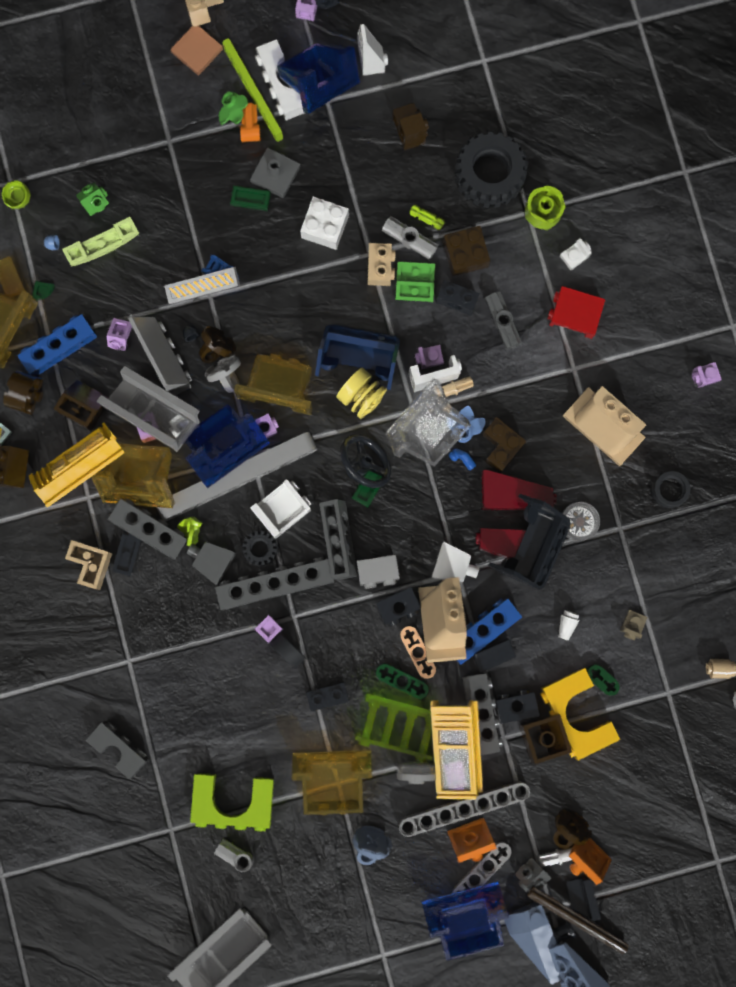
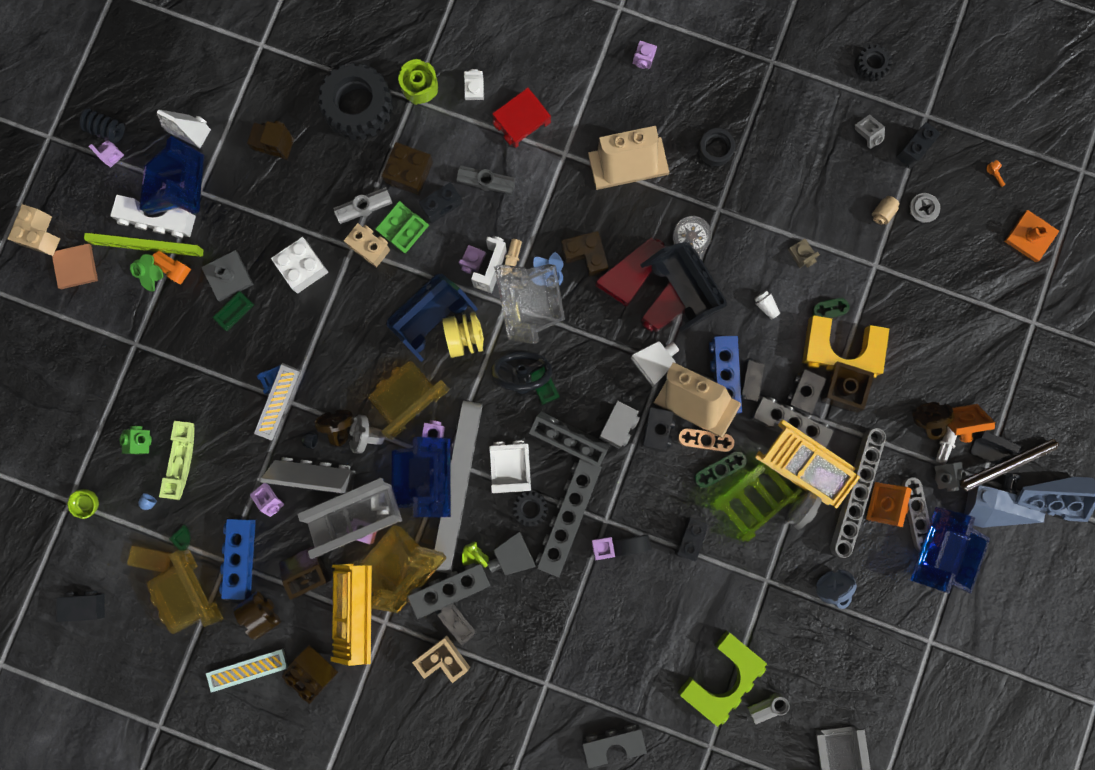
camera: 50 degrees left, 0 degrees up
(332, 780) = (762, 583): clear yellow windscreen -> none
(427, 217) = (356, 180): lime axle -> none
(464, 456) = (572, 290): blue arm -> none

